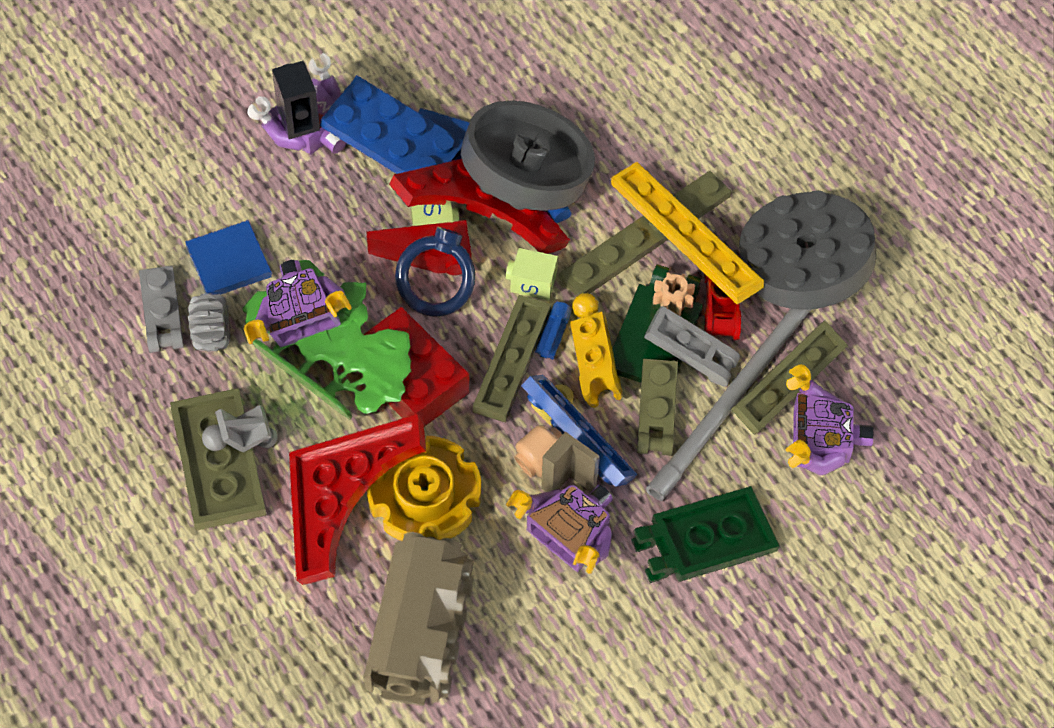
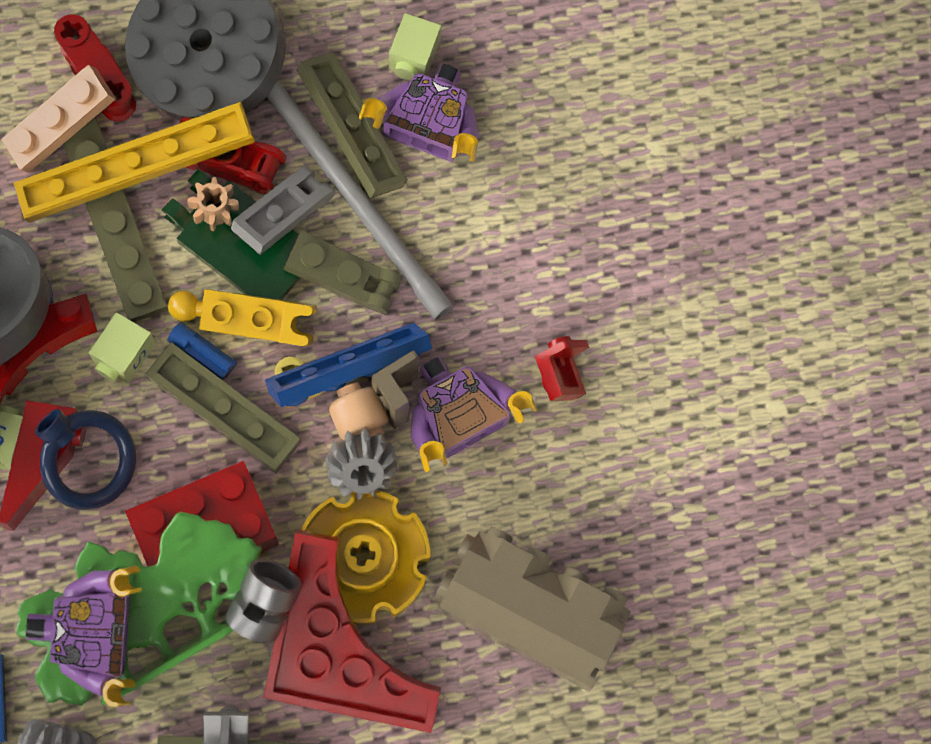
camera: 80 degrees left, 15 degrees up
(357, 409) = (263, 601): none -> flat silver wheel
(497, 460) = (361, 464): none -> light grey gear
(637, 594) = (559, 369): none -> red bracket
(701, 173) = (58, 119): none -> light nougat plate
(706, 536) = (511, 276): dark green tile -> none
(756, 186) = (90, 51): none -> red piece
(879, 402) = (414, 47): none -> yellowish green brick

